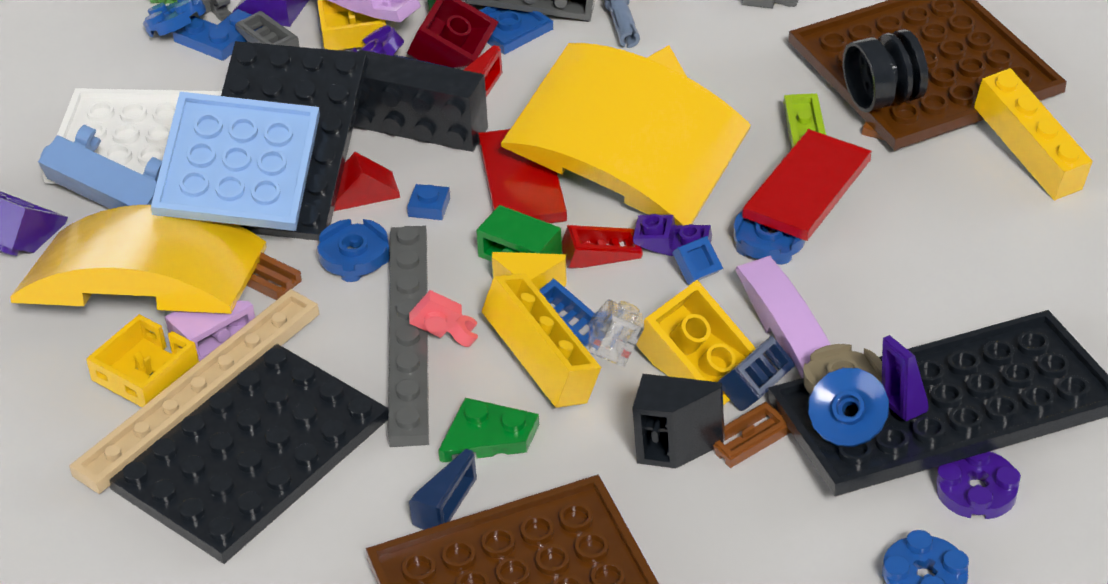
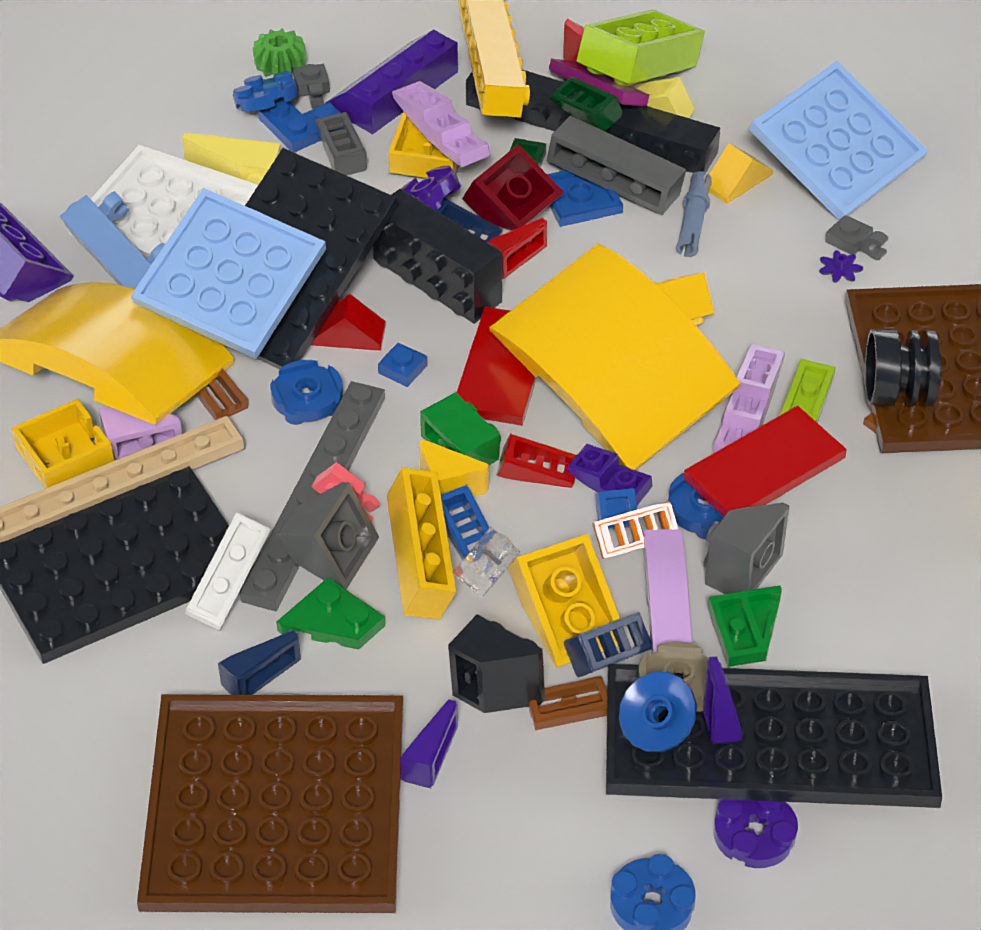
camera: 20 degrees right, 5 degrees up
(180, 72) = (231, 156): none -> light yellow slope
(369, 420) = (227, 571): none -> white tile
(450, 357) = (330, 535): none -> dark grey slope
(649, 515) = (426, 754): none -> dark purple slope
(739, 254) = (666, 519): none -> slope
(760, 146) = (751, 401): none -> lavender slope
(767, 18) = (840, 265): none -> dark purple plant
(833, 255) = (745, 547): none -> dark grey slope
(864, 316) = (745, 623): none -> green wing

